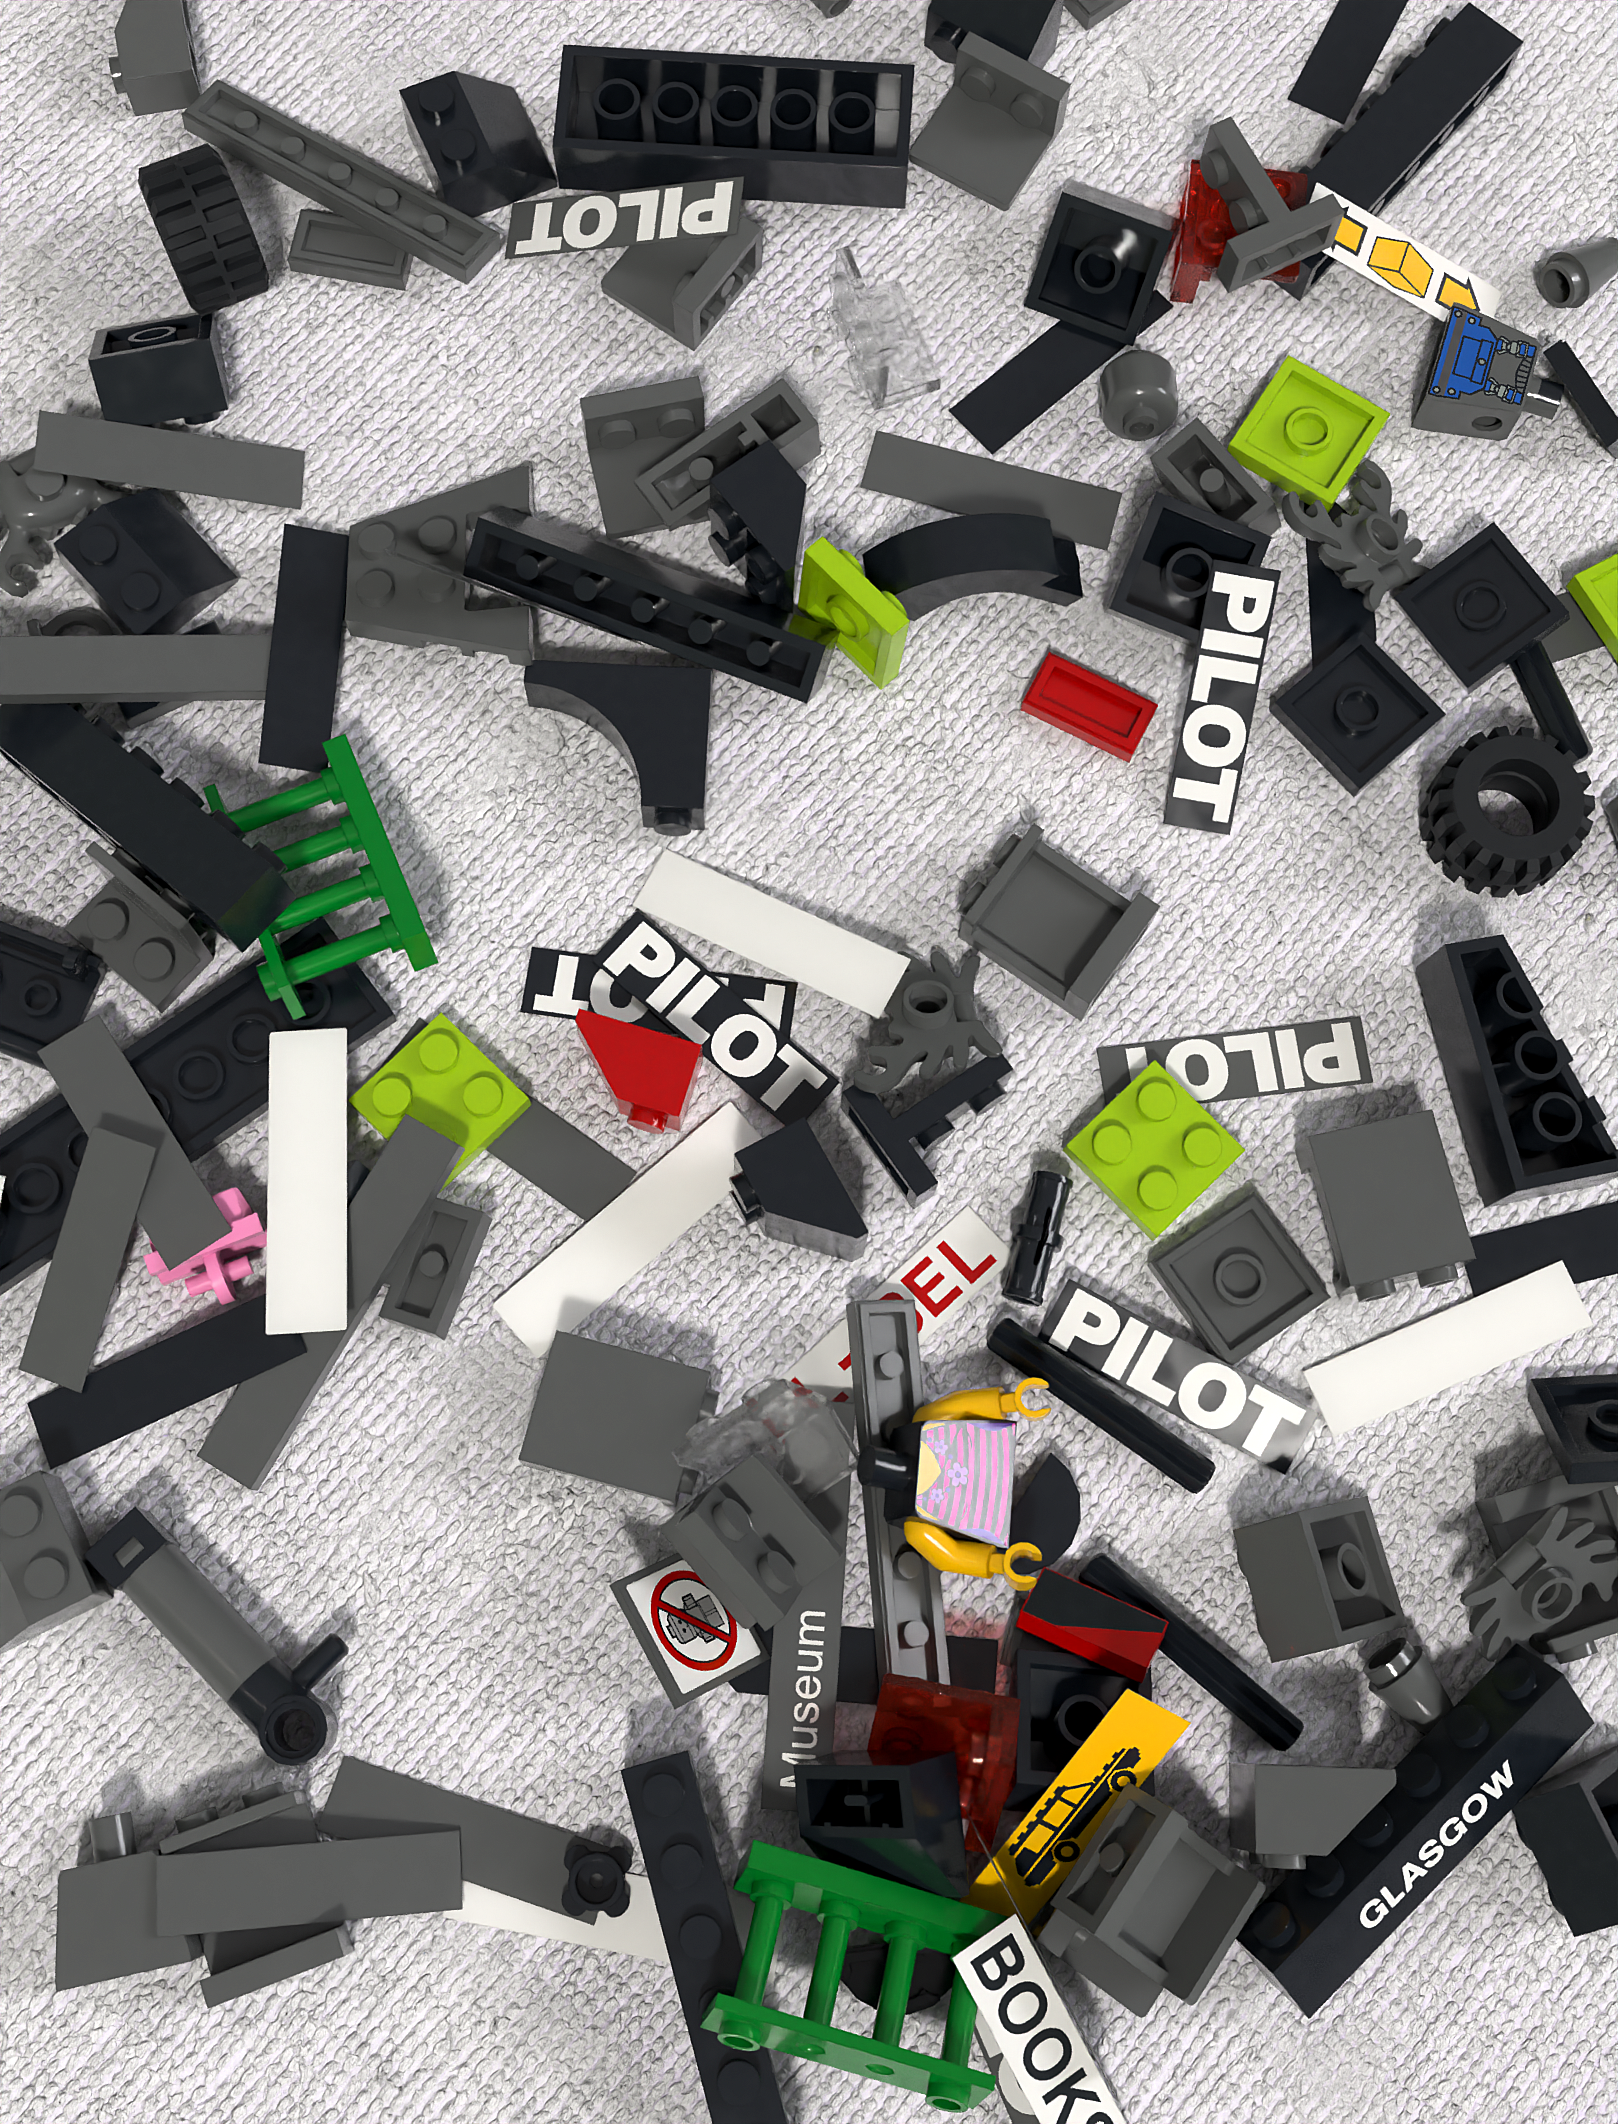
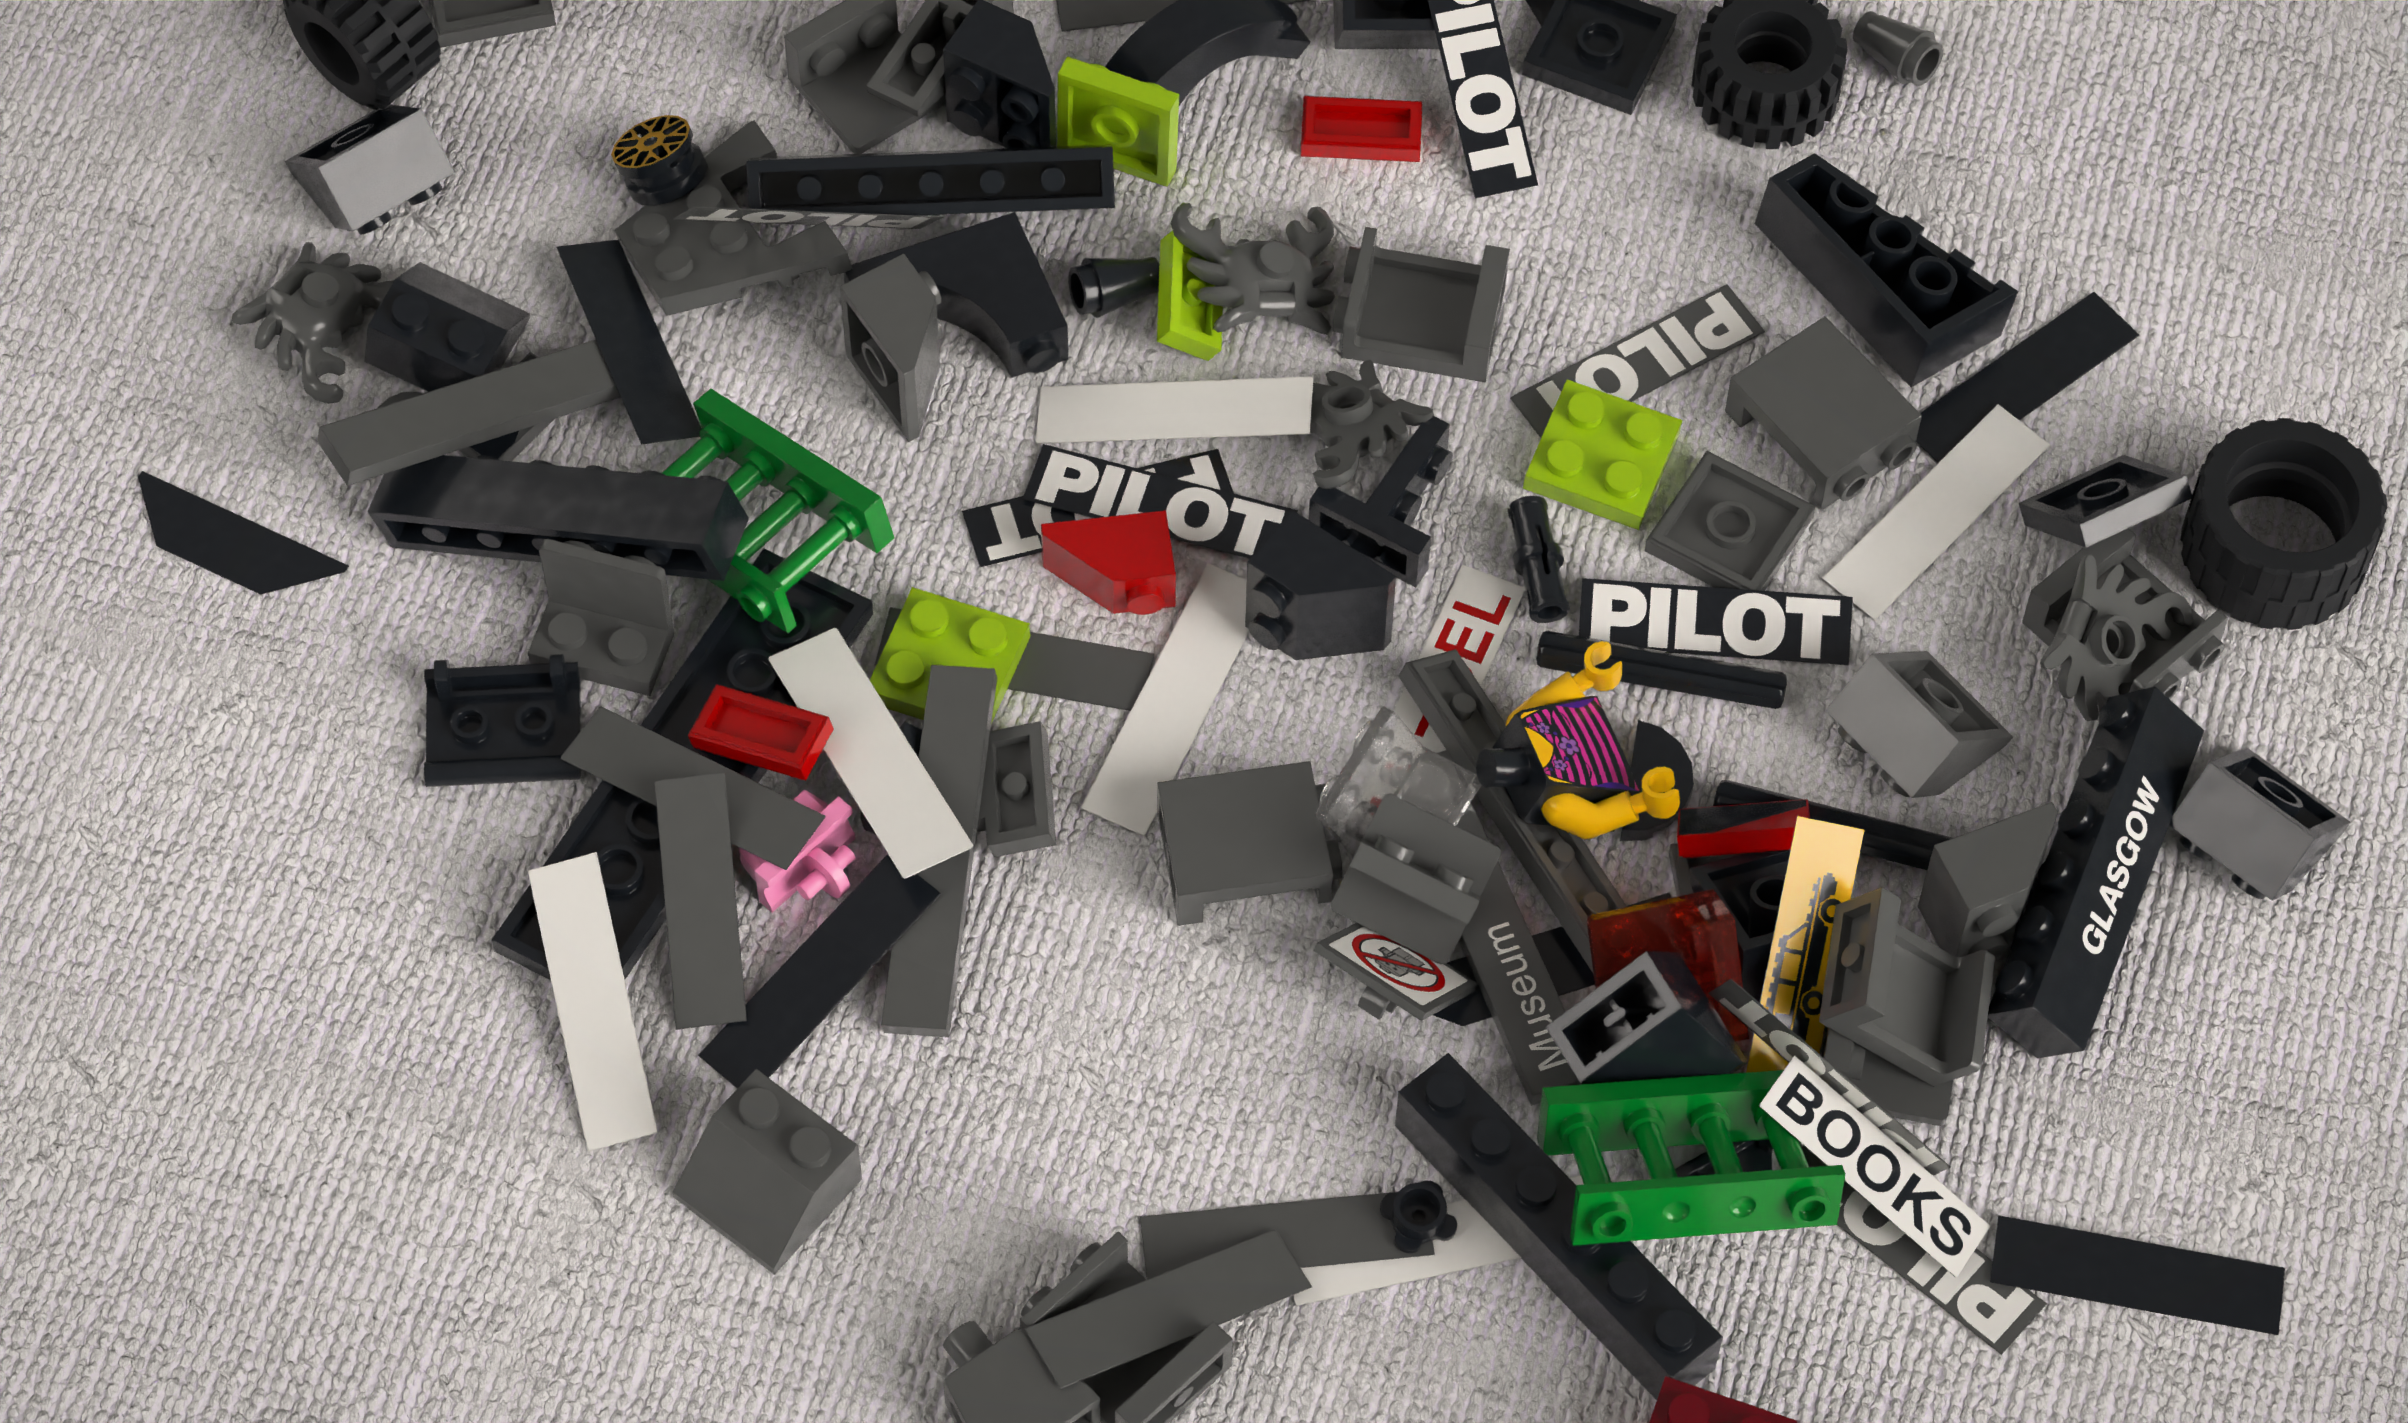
camera: 20 degrees left, 15 degrees down
(168, 460) = (421, 234): dark grey sticker -> none
(215, 1639) = (986, 1158): piece -> none
(218, 1113) = (761, 732): none -> red tile
(420, 477) = (661, 162): none -> black wheel
(541, 756) = (895, 338): none -> dark grey slope
(776, 774) = (1111, 283): none -> black cone
(841, 819) = (1182, 317): none -> lime plate
(915, 828) = (1261, 275): none -> dark grey animal
(1408, 1684) = (2035, 774): dark grey cone -> none

